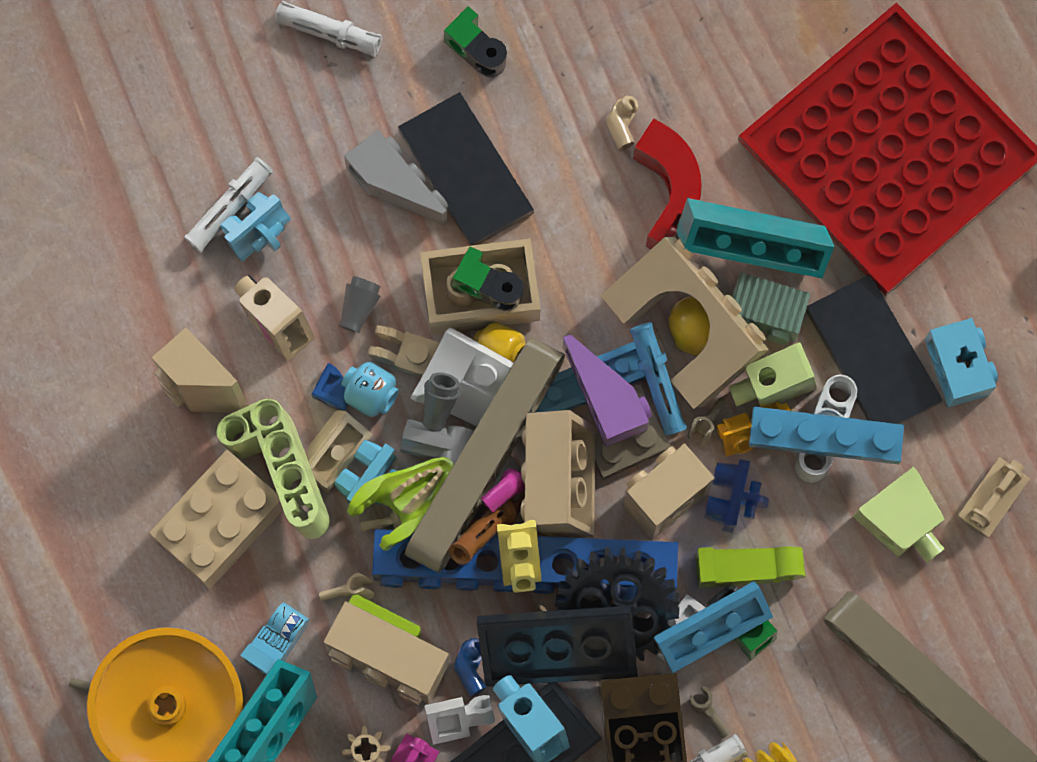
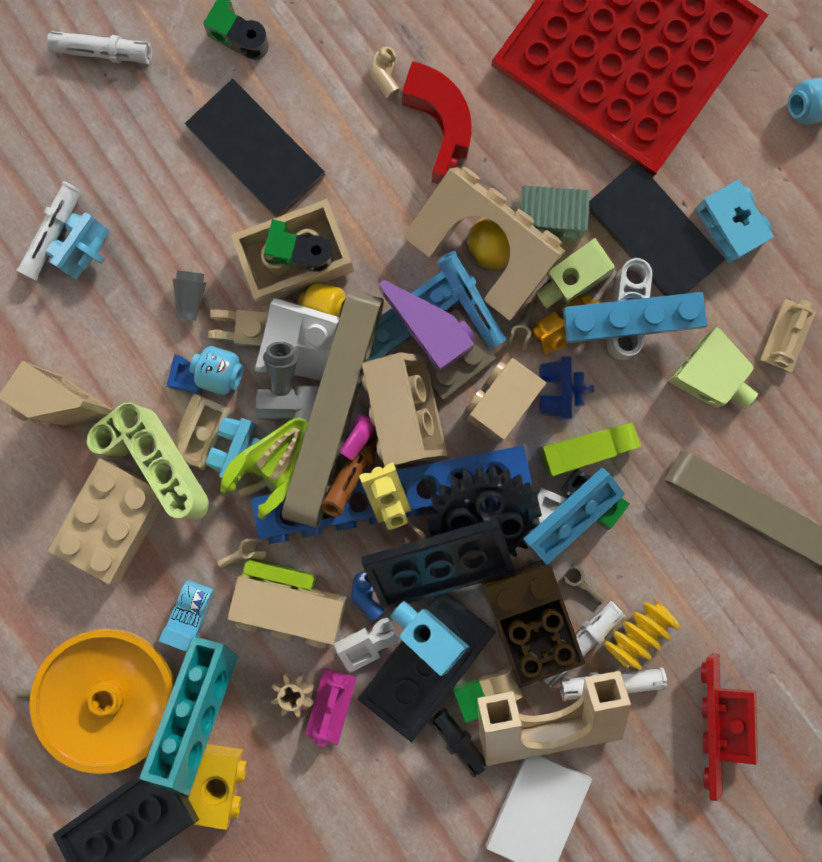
camera: 15 degrees left, 10 degrees up
(274, 315) = (113, 324): tan torso -> none
(388, 177) = (186, 172): light grey slope -> none
(755, 238) = (529, 151): teal brick -> none

